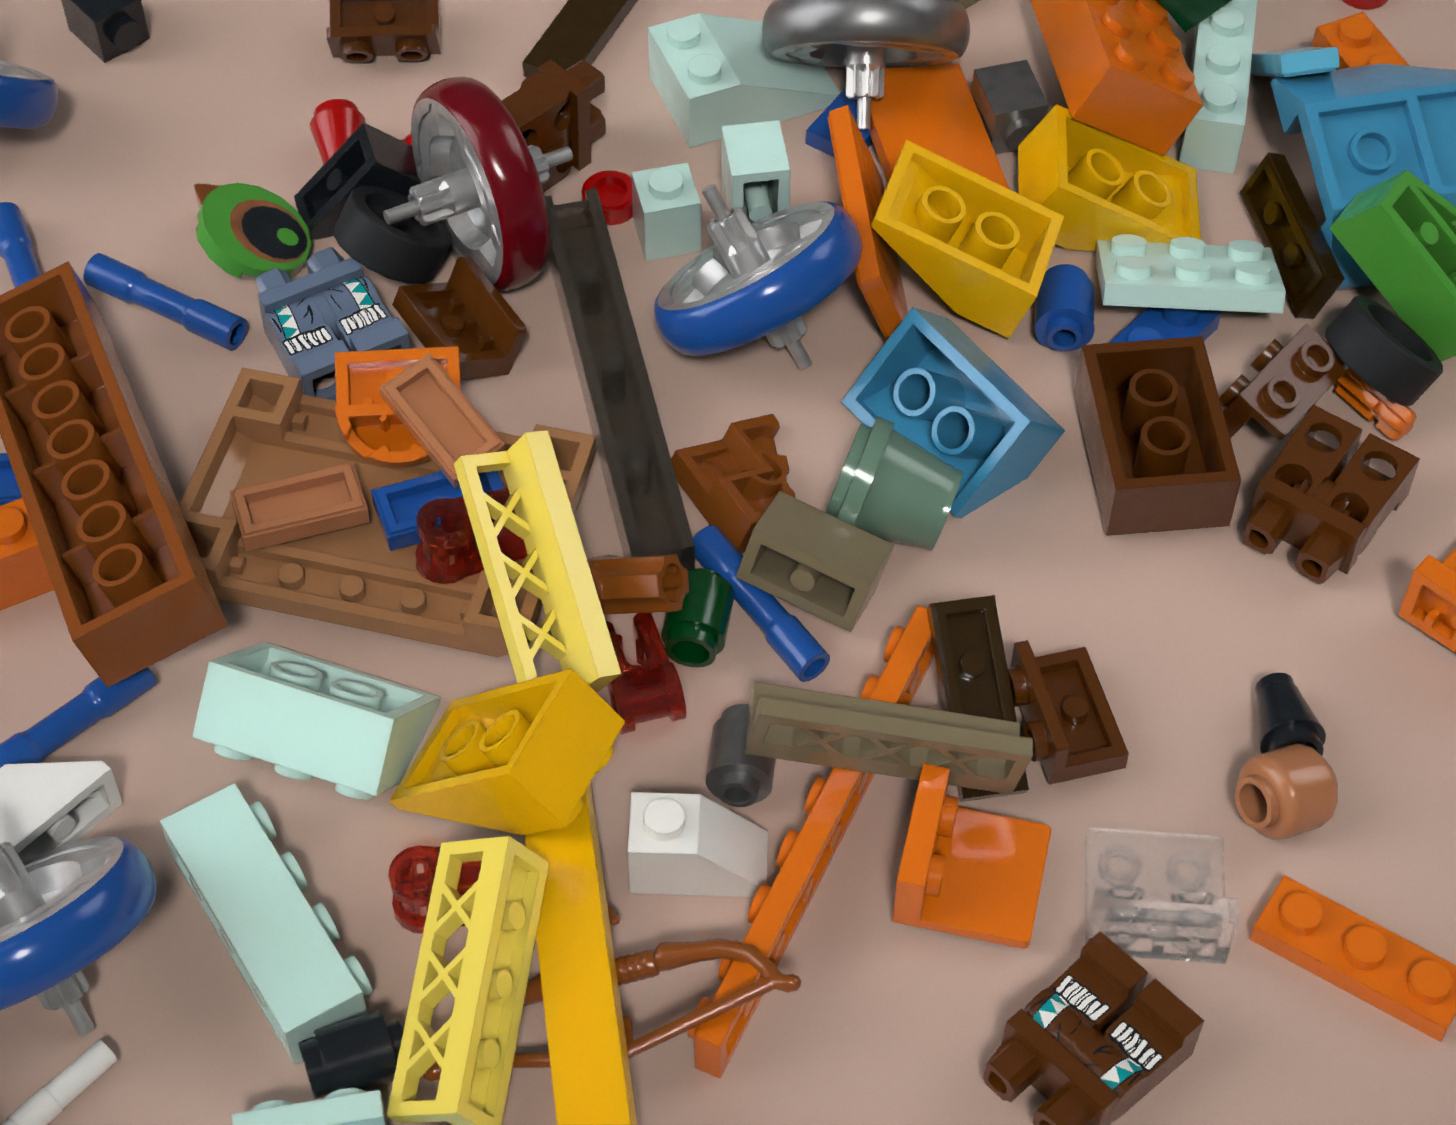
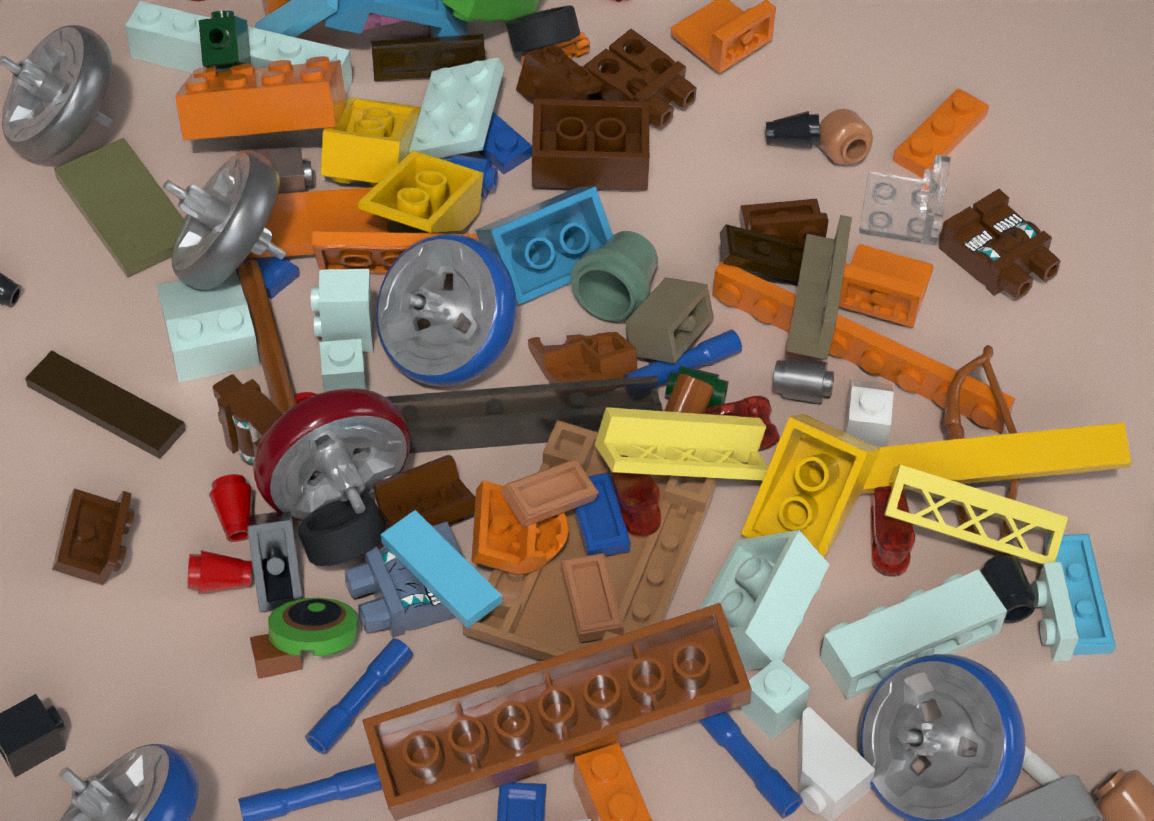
camera: 85 degrees left, 0 degrees up
(144, 740) = (776, 698): none -> light aqua brick
(319, 327) = (441, 569): none -> medium azure tile
(701, 131) = (266, 336): none -> dark orange axle

